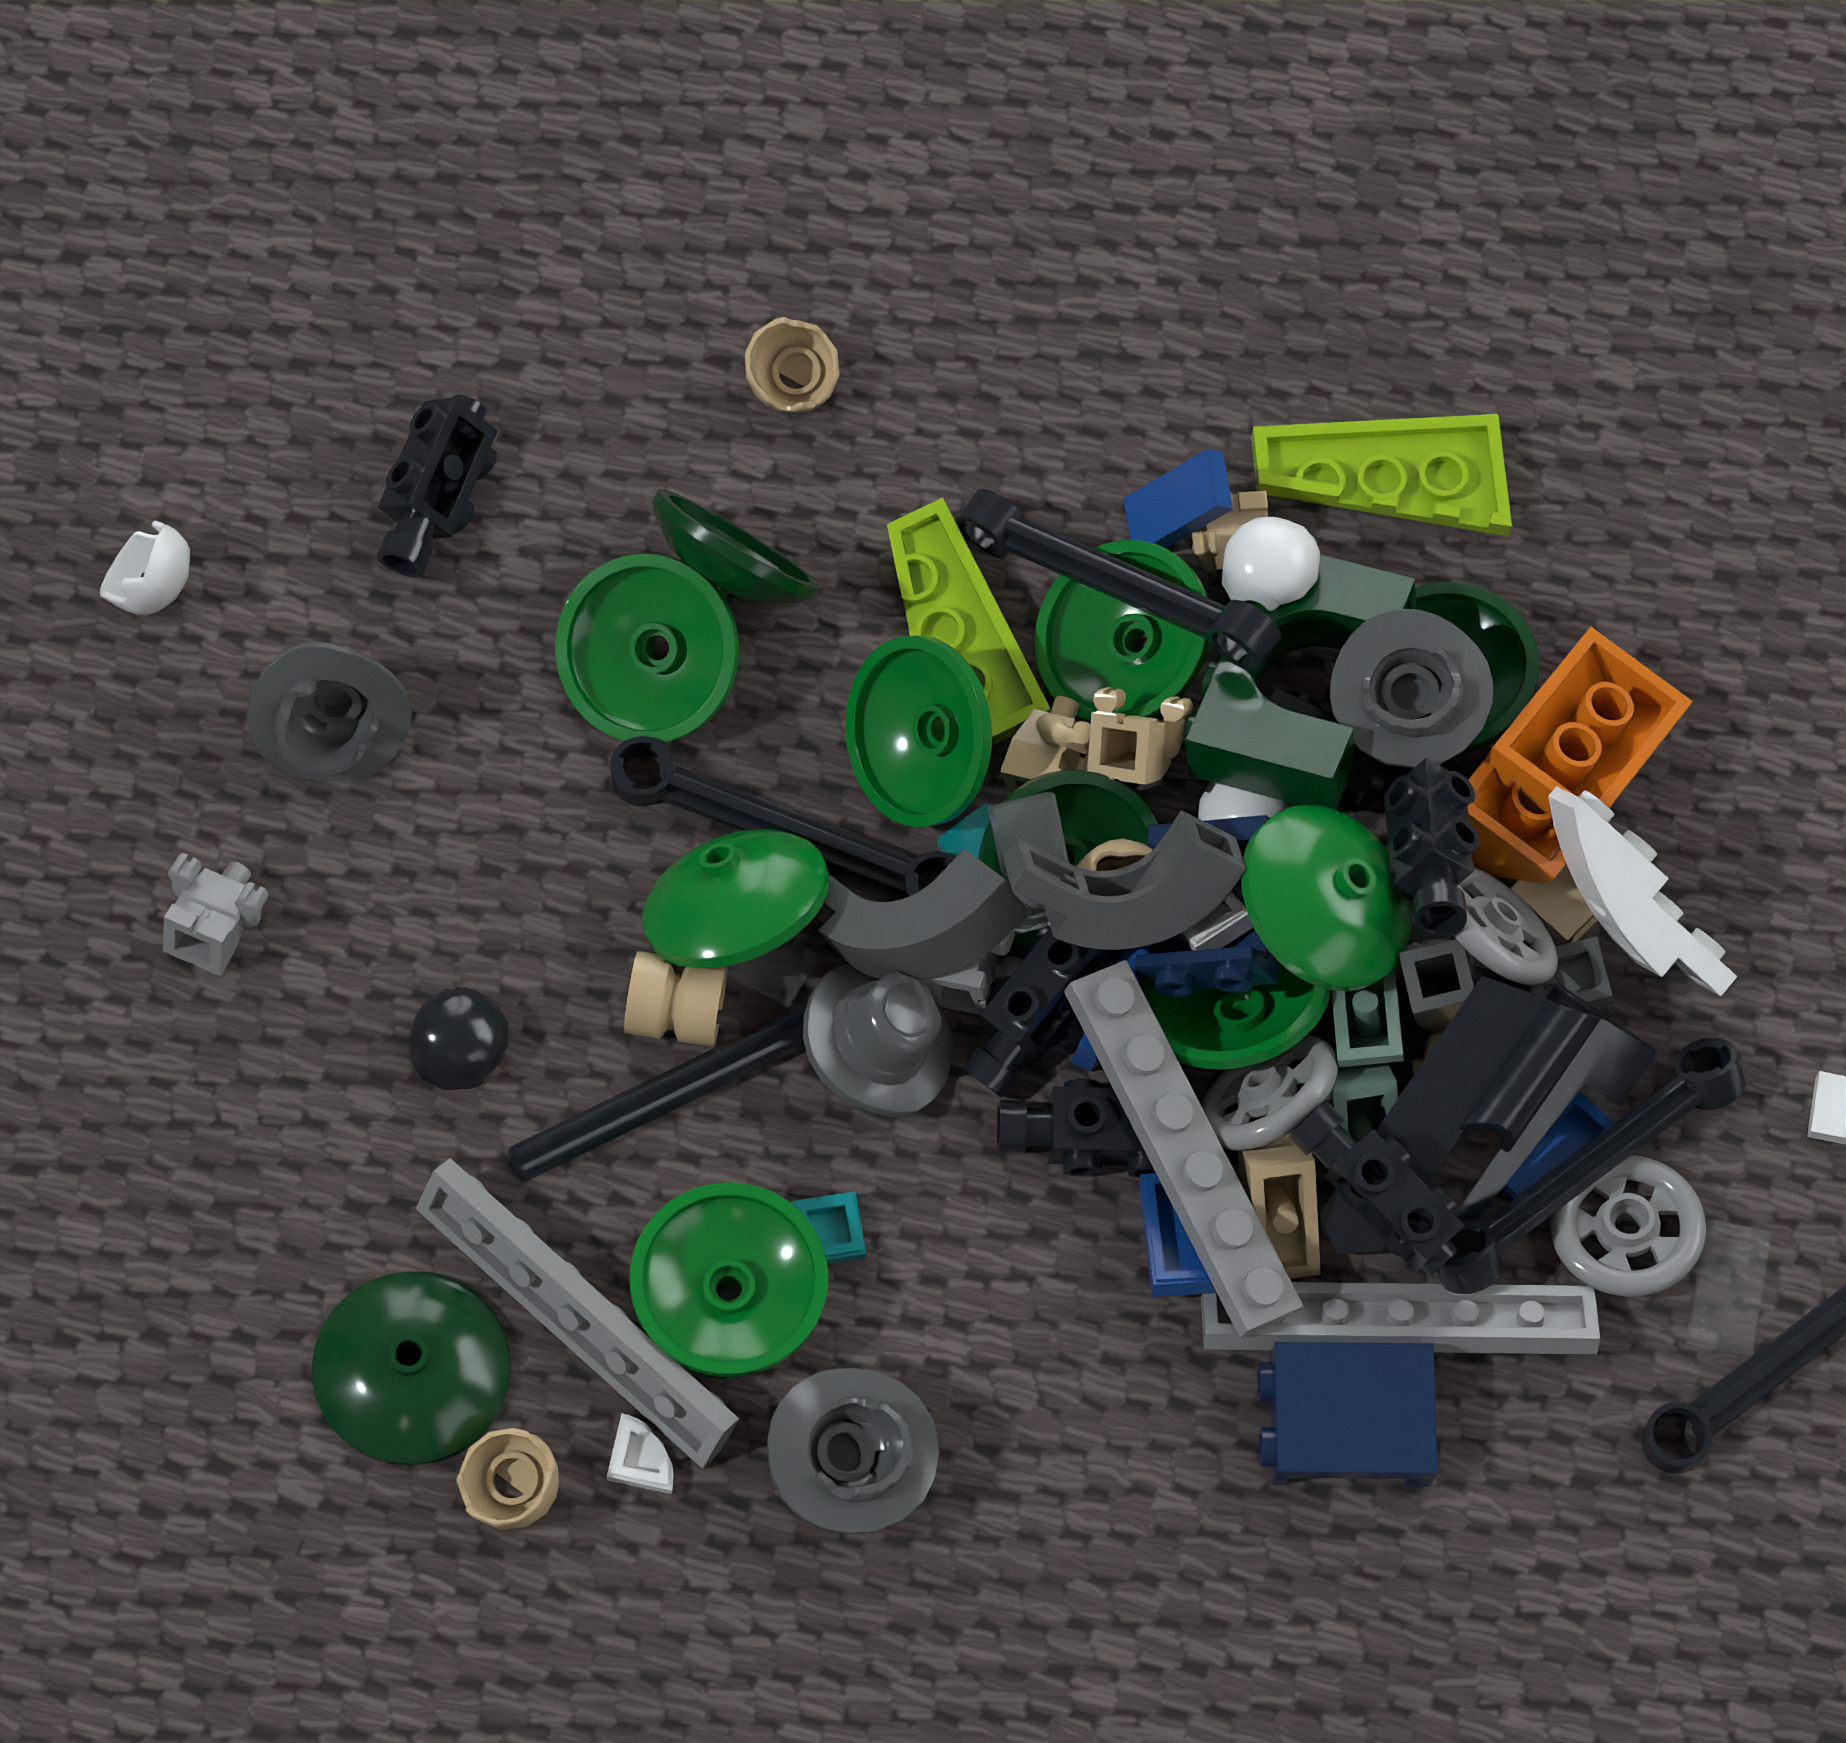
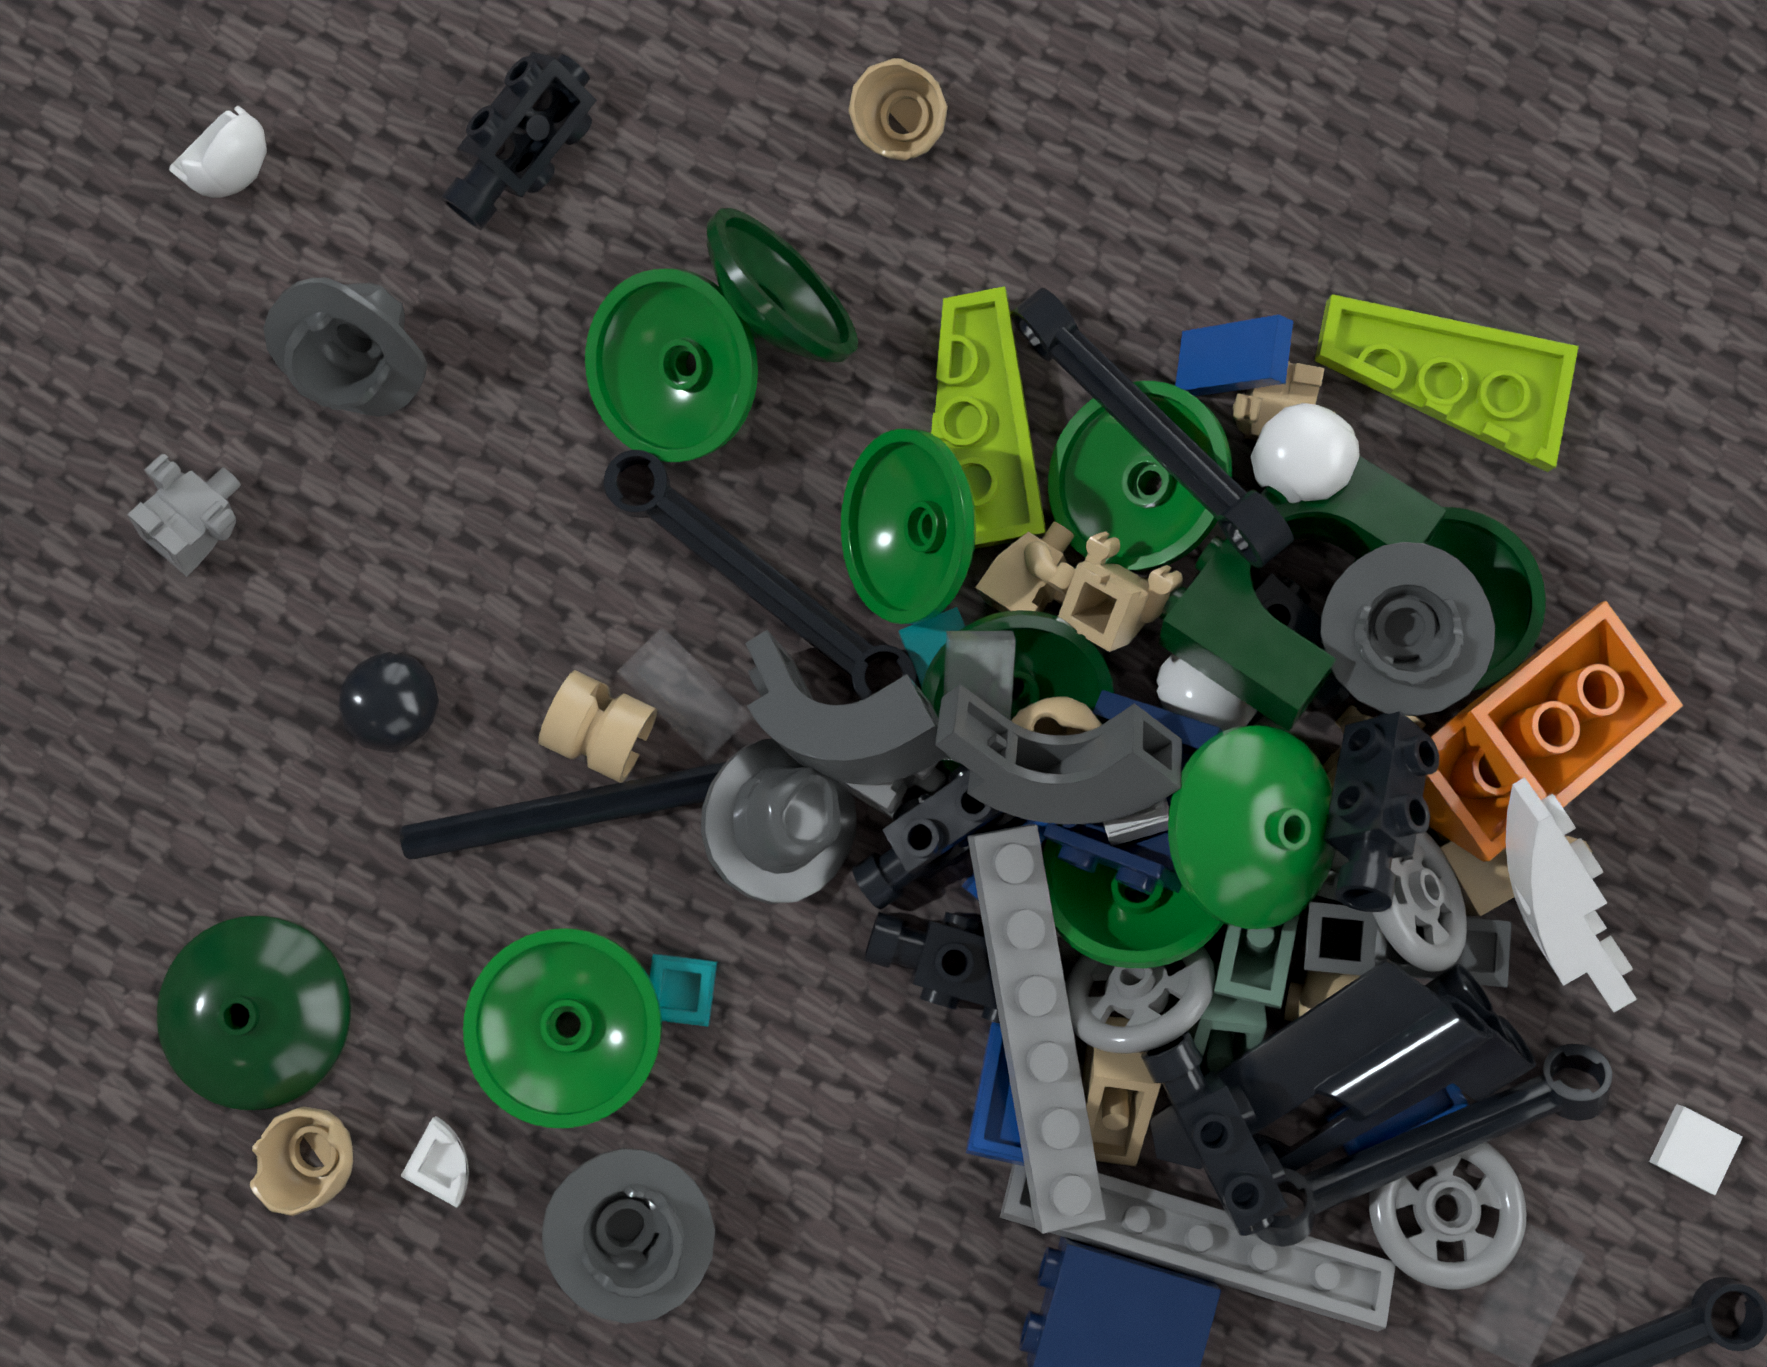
camera: 20 degrees right, 15 degrees up
(576, 1313) = (404, 987): light grey plate -> none
(735, 898) = (680, 648): green dish -> none

